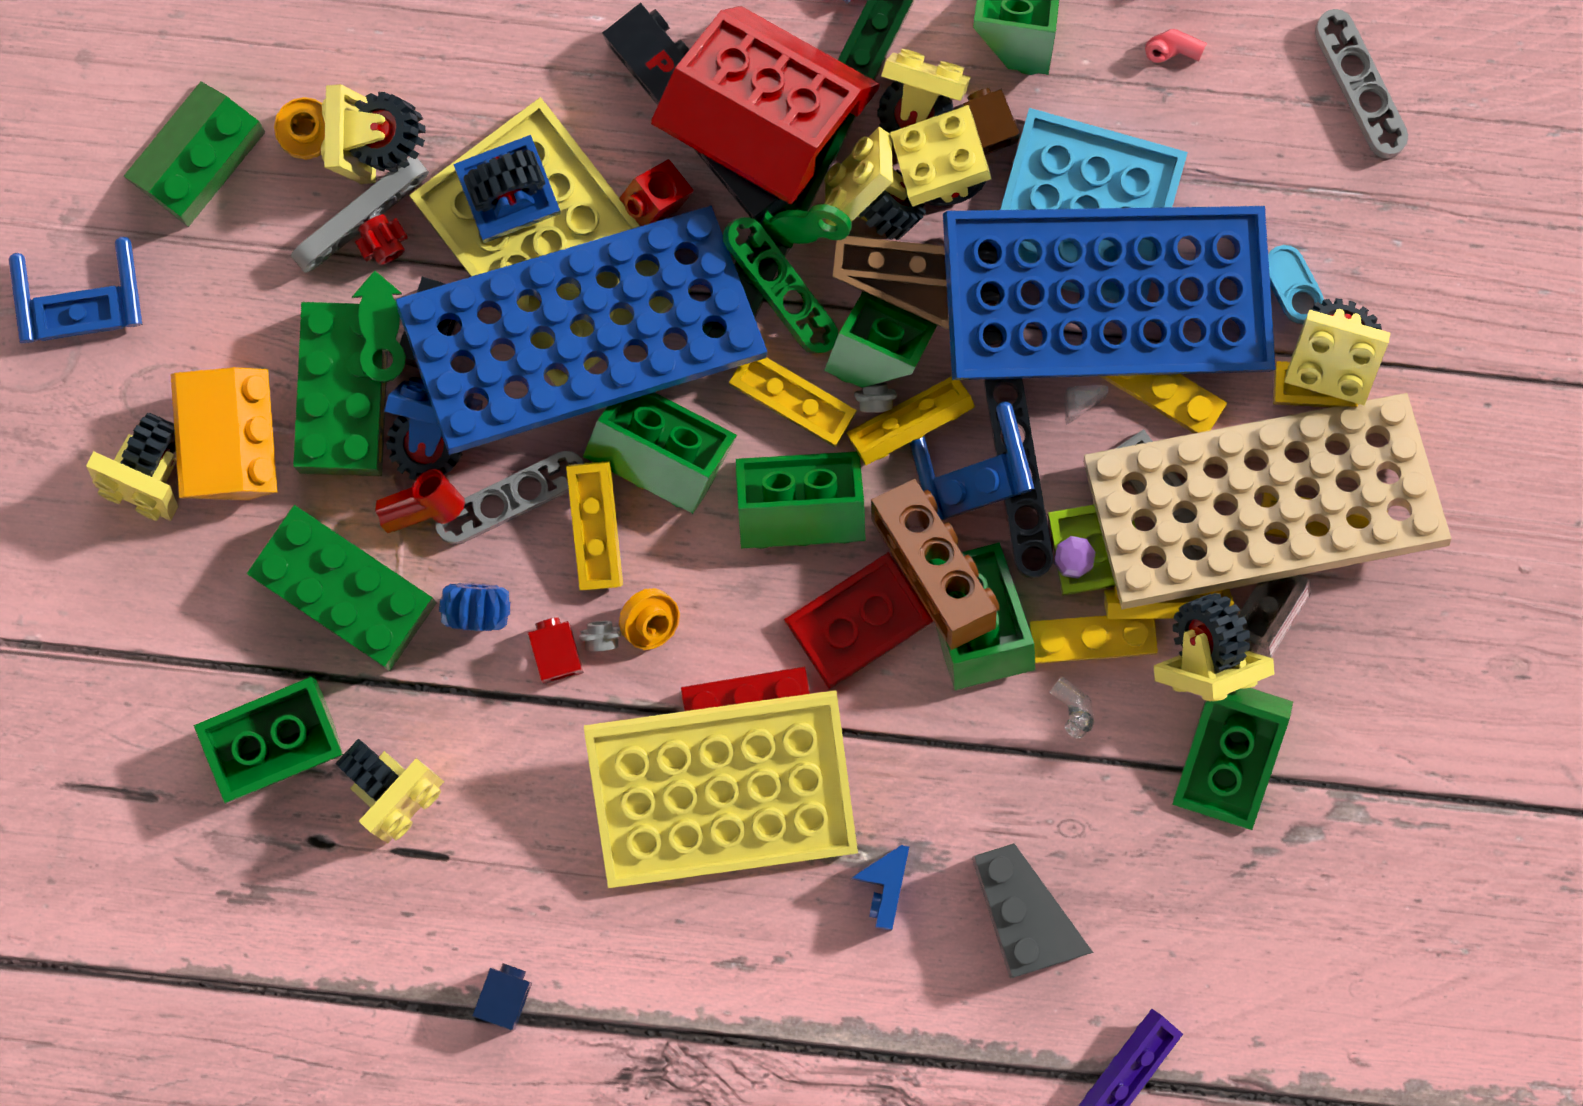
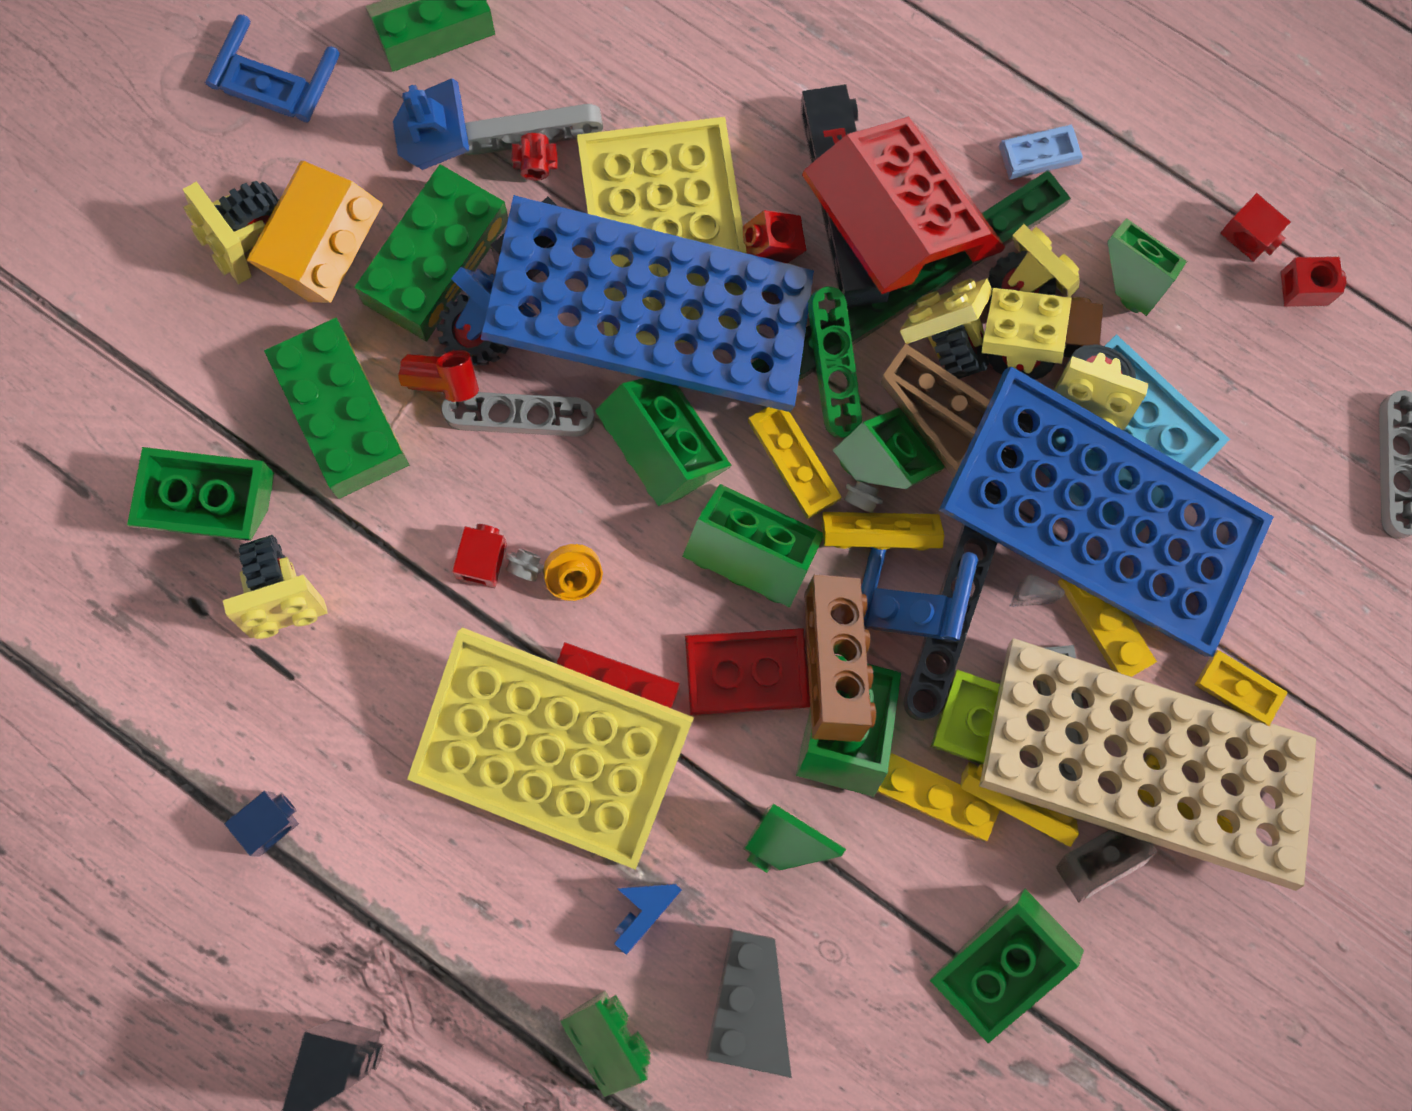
camera: 20 degrees right, 5 degrees down
(265, 265) = (431, 125): none -> blue piece
(300, 128) = (525, 42): light orange plate -> none
(368, 133) = (569, 66): plate -> none
(379, 327) = (488, 214): green brick -> none
(474, 606) = (434, 481): blue gear -> none
(507, 188) = (656, 166): plate -> none
(594, 525) = (572, 471): yellow plate -> none
(806, 227) = (882, 322): green brick -> none
(917, 1014) = (606, 1044): none -> green slope
(979, 753) = (787, 842): none -> green slope
(1038, 173) = (1102, 384): none -> light yellow plate
(1074, 557) = (960, 719): medium lavender tile -> none
(1078, 705) = (894, 850): clear arm -> none
(1173, 43) = (1259, 349): coral arm -> none
(1214, 651) = (1040, 868): plate -> none
(1290, 276) = (1264, 588): medium azure piece -> none
(1338, 351) = (1280, 672): light yellow plate -> none

